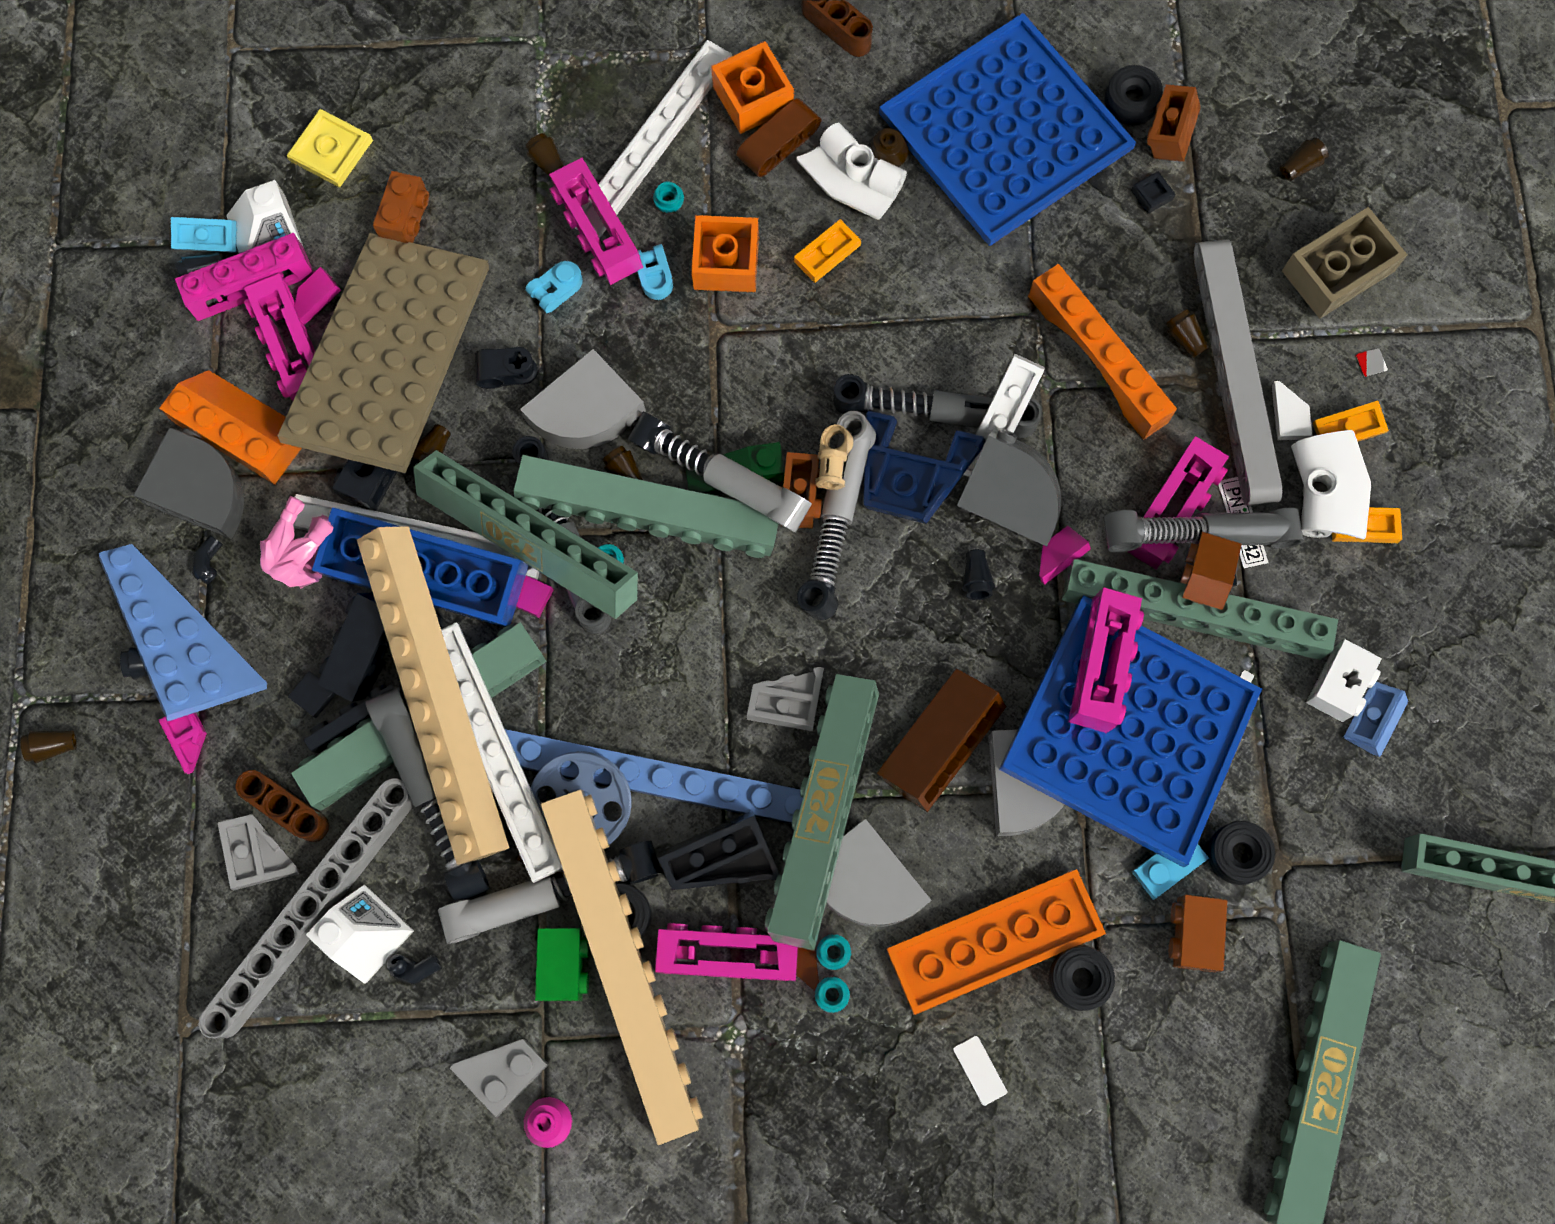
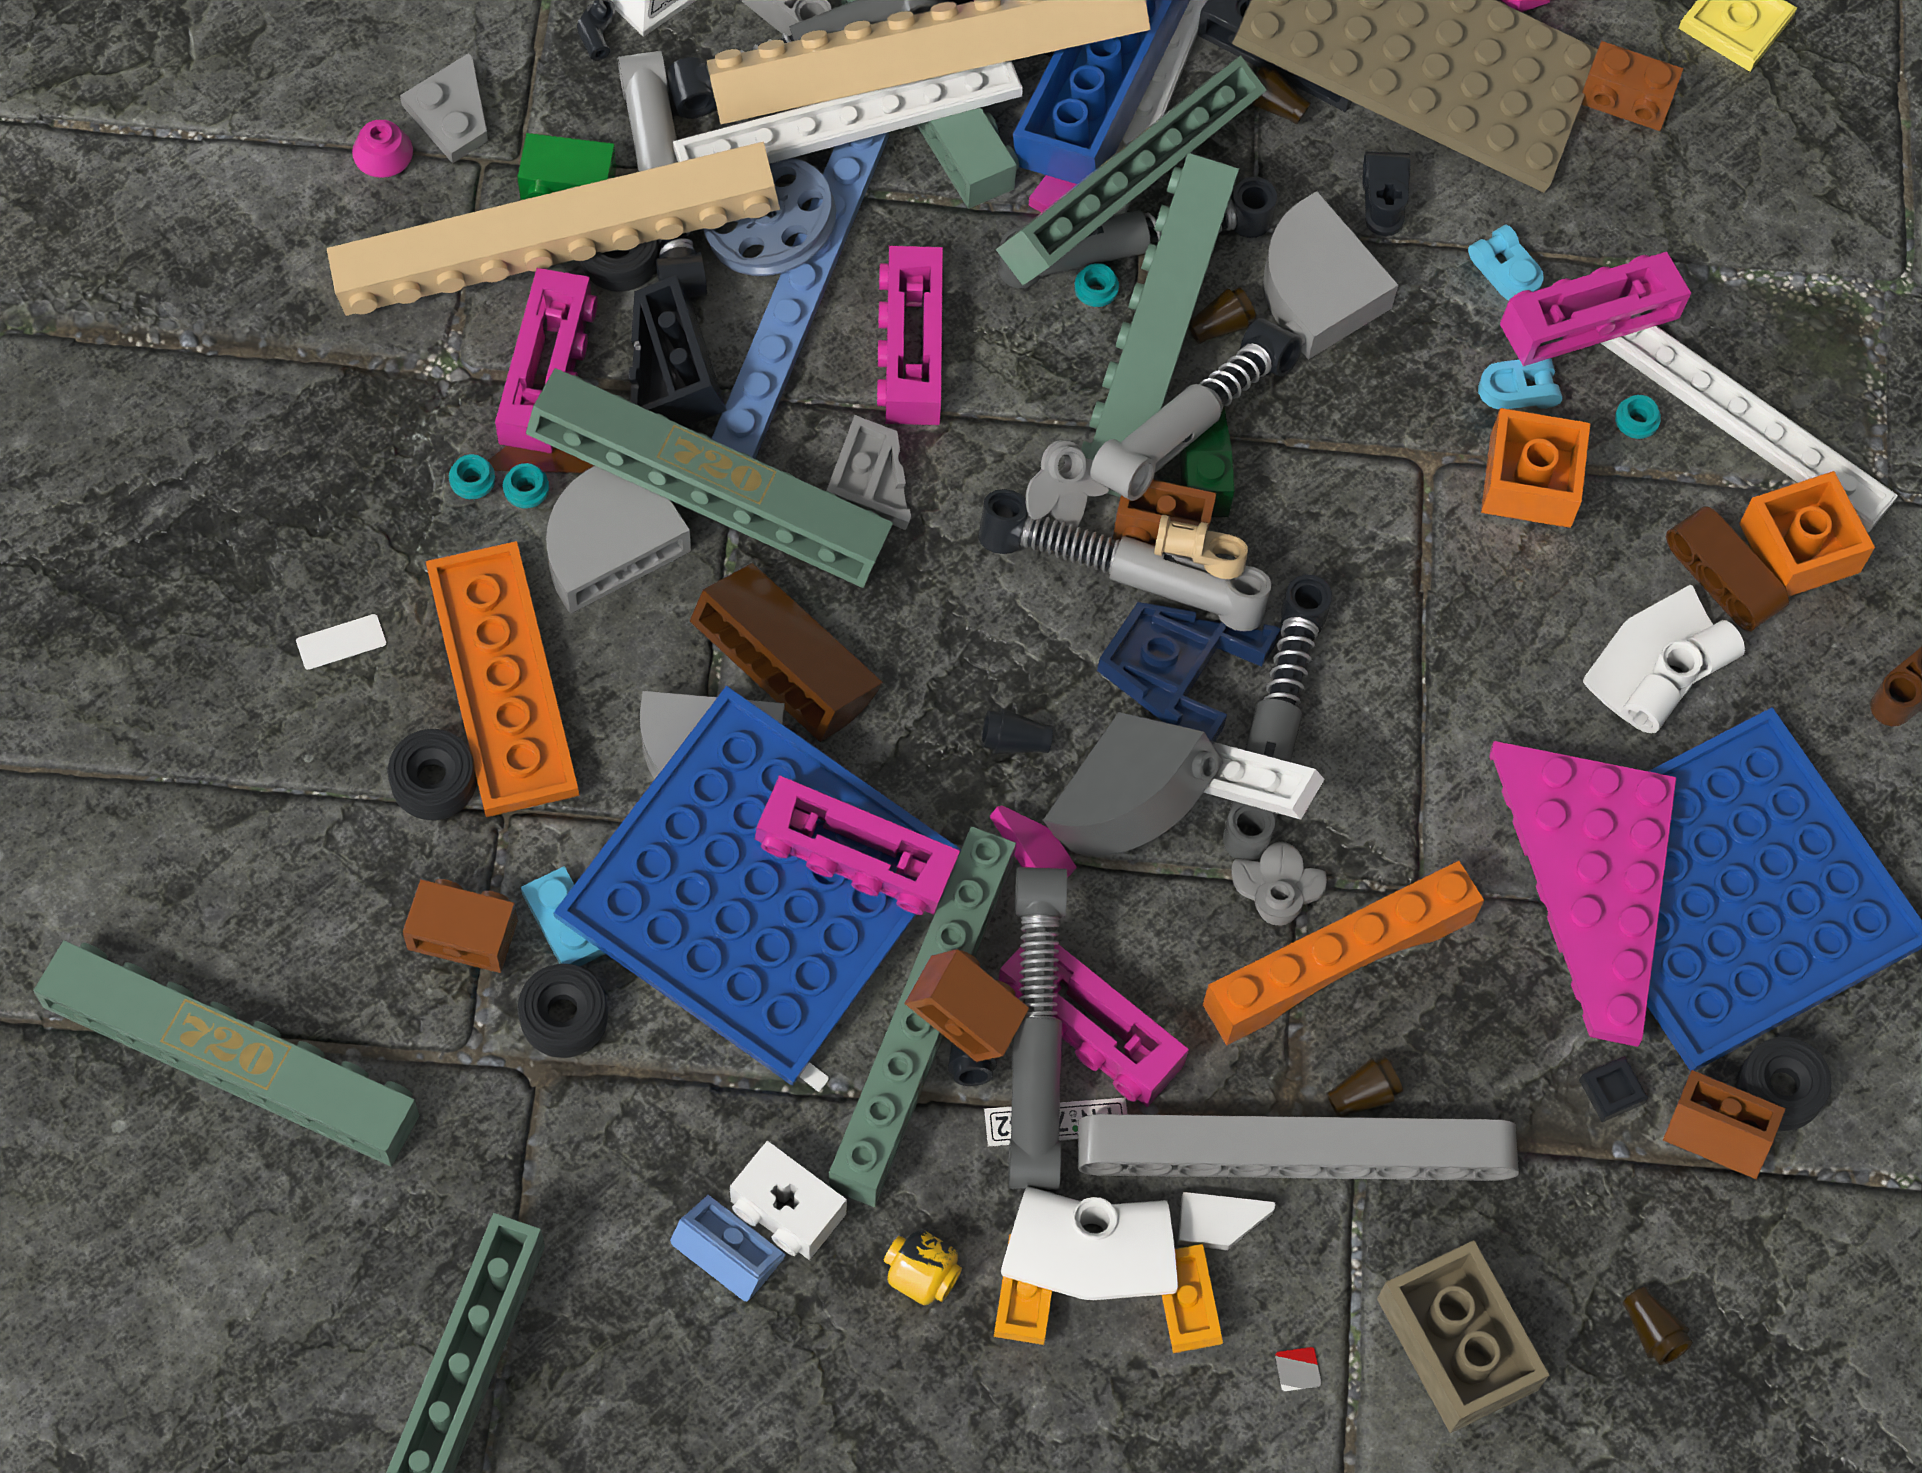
camera: 90 degrees right, 10 degrees down
(544, 153) = (1712, 267): dark brown cone -> none
(656, 699) = (910, 399): none -> dark pink brick
(789, 556) = (1064, 490): none -> light grey plate
(827, 251) = (1537, 609): light orange plate -> none
(889, 146) = (1702, 715): dark brown cone -> none
(1005, 202) = (1599, 868): none -> dark pink wing
(1050, 397) = (1276, 877): none -> light grey plate
(1370, 588) = (922, 1267): none -> yellow head

